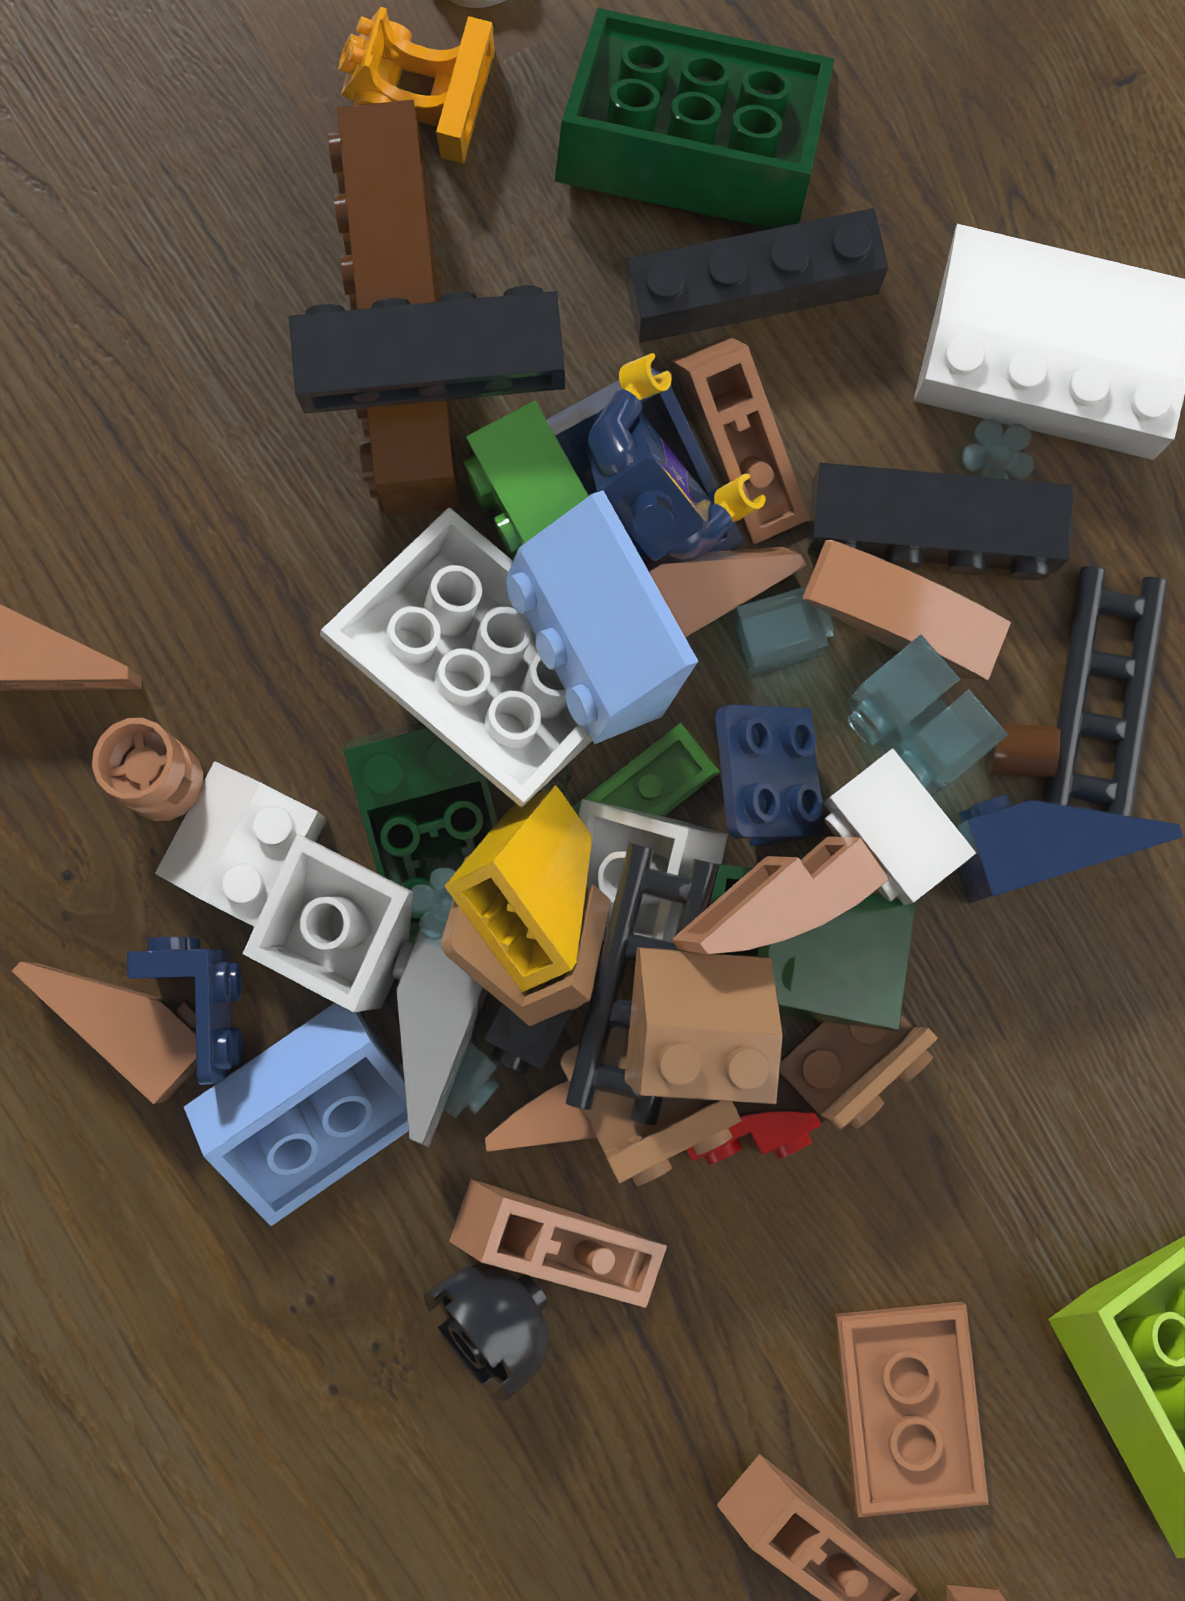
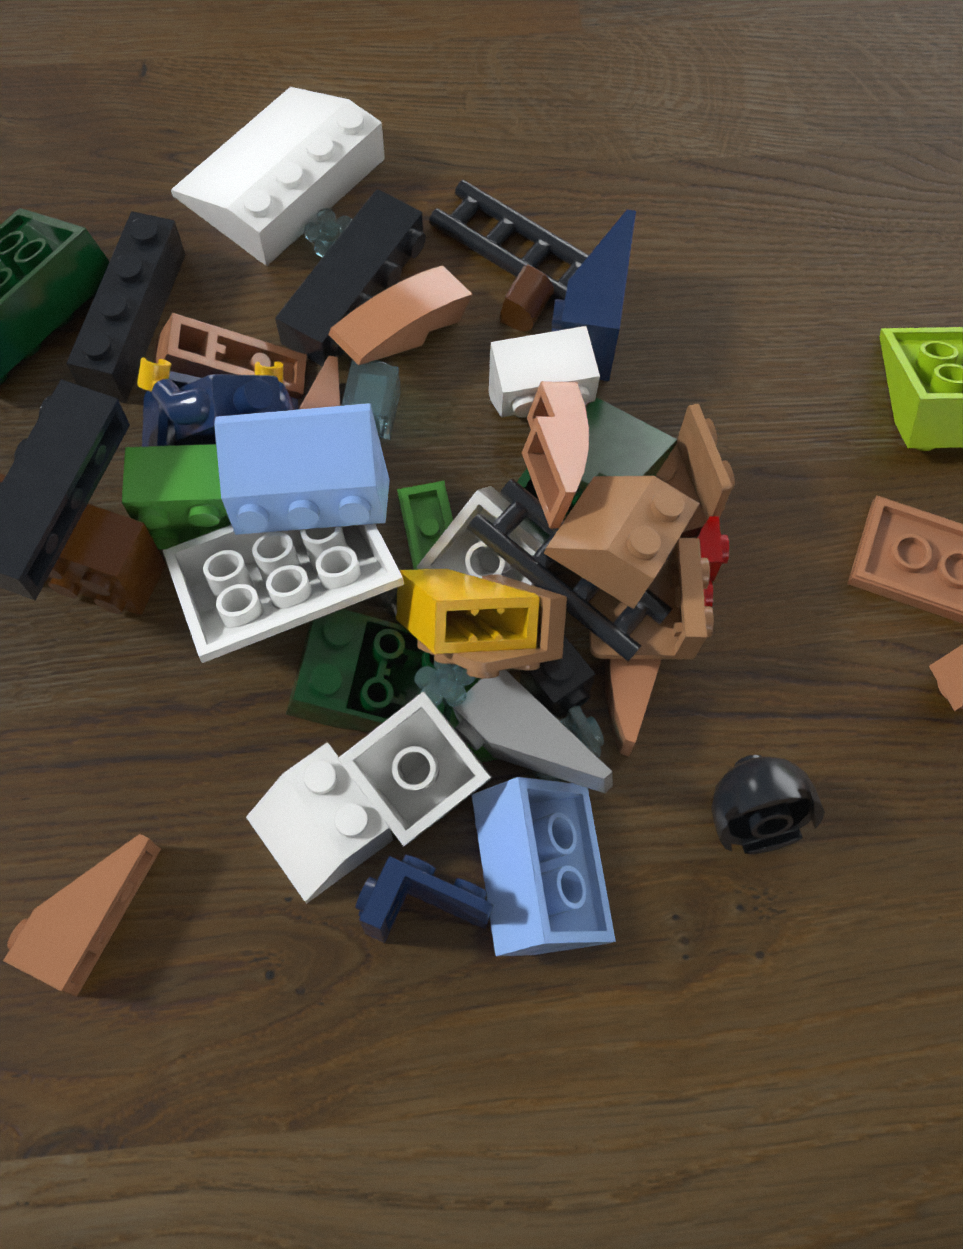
camera: 65 degrees left, 15 degrees down
(135, 1032) = (416, 970): nougat slope -> none
(147, 769) = (225, 858): nougat wheel -> none
(556, 1244) = (719, 736): nougat slope -> none
(769, 773) = (466, 439): dark blue bracket -> none
(905, 712) = (454, 338): clear light blue piece -> none

